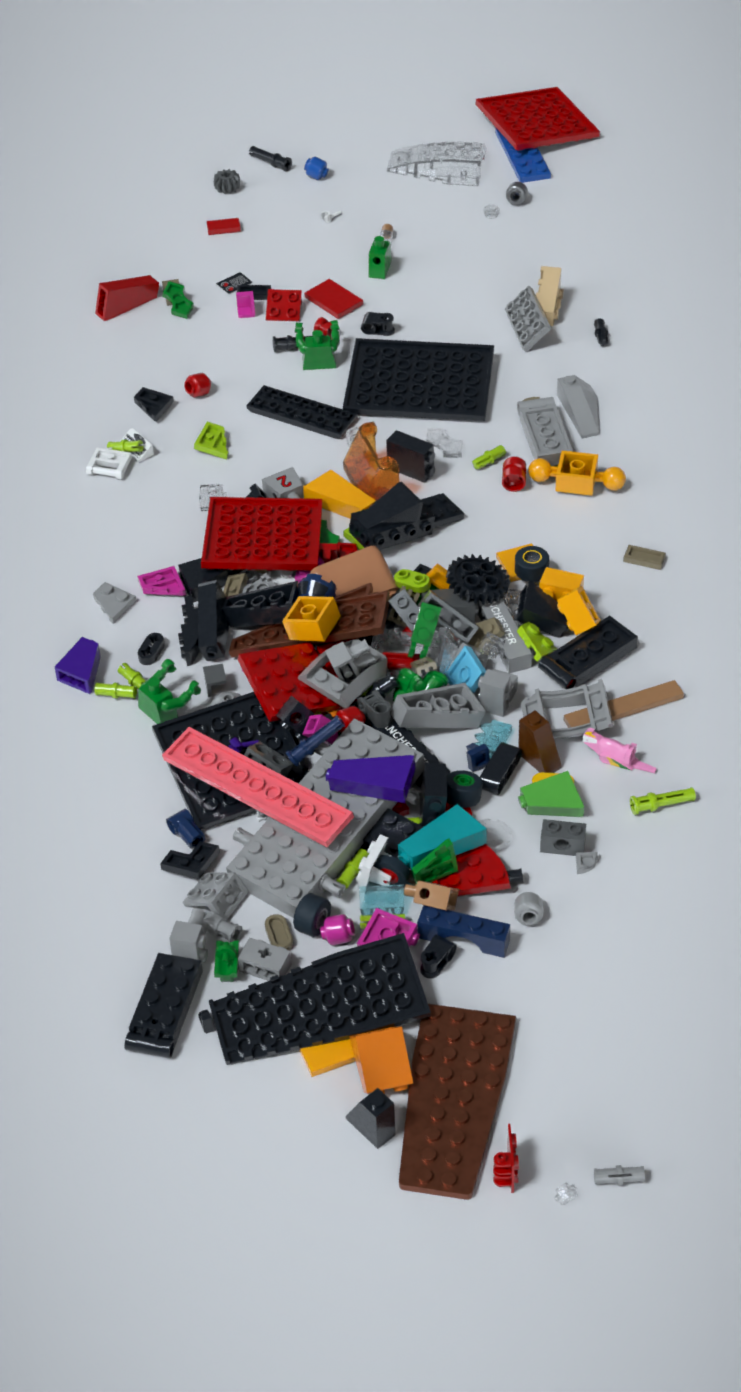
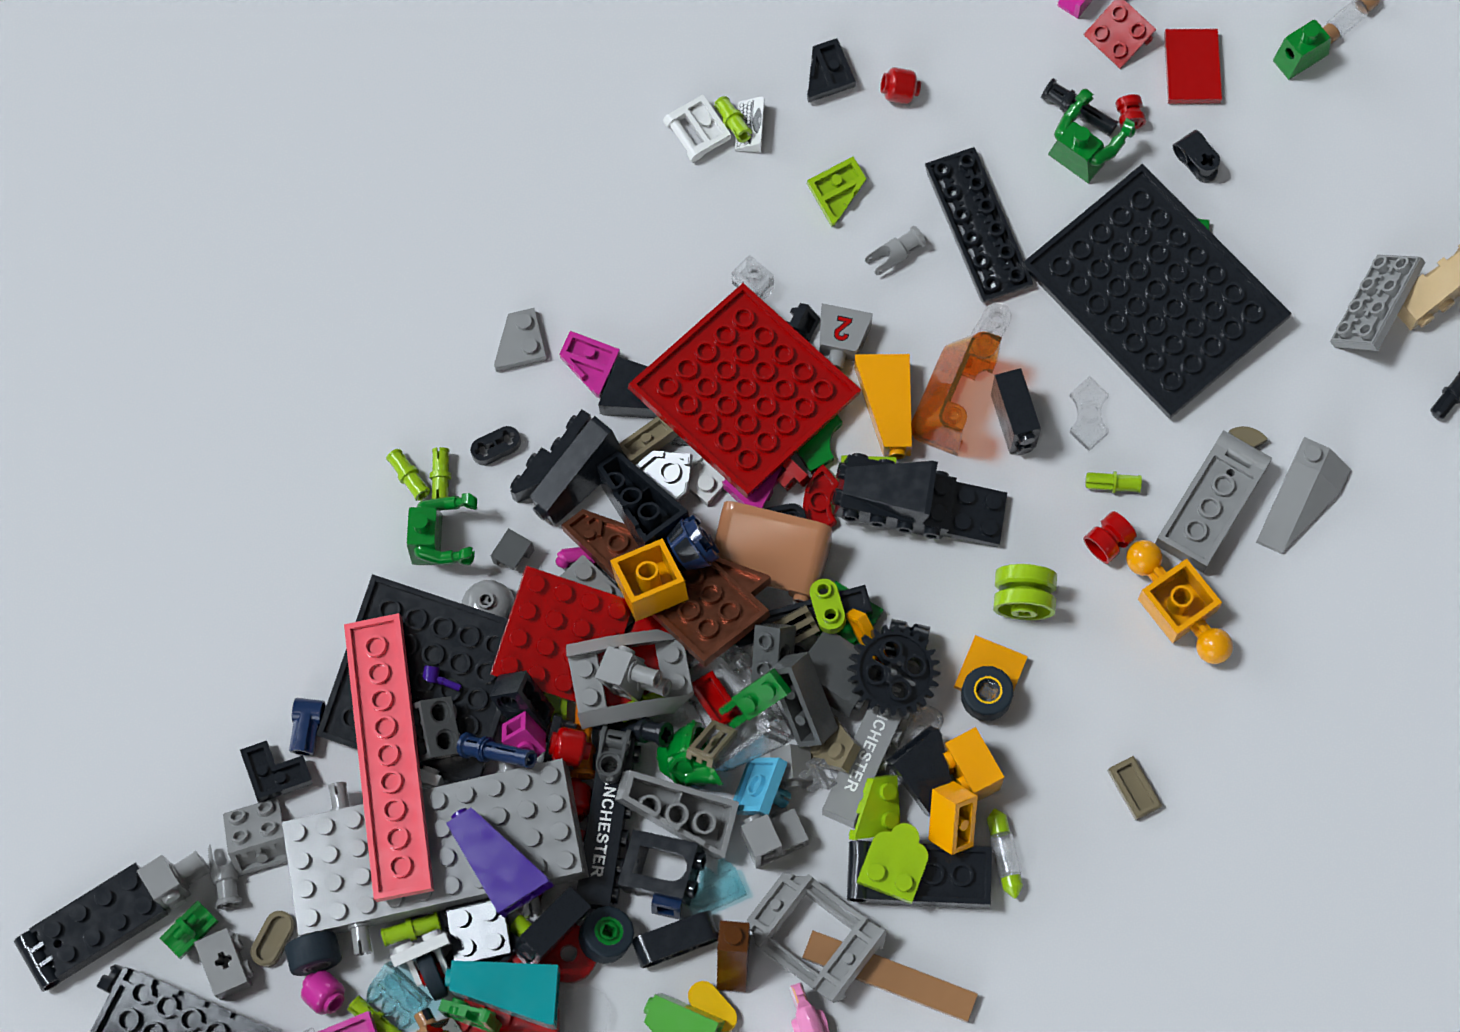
camera: 45 degrees right, 25 degrees up
(80, 665) = (405, 409): dark purple slope -> none
(273, 442) = (897, 249): none -> light grey piece
(446, 757) = (681, 889): none -> black panel
(501, 514) = (1025, 592): none -> lime wheel
(573, 650) = (895, 863): none -> lime plate
(626, 621) = (1005, 853): none -> piece

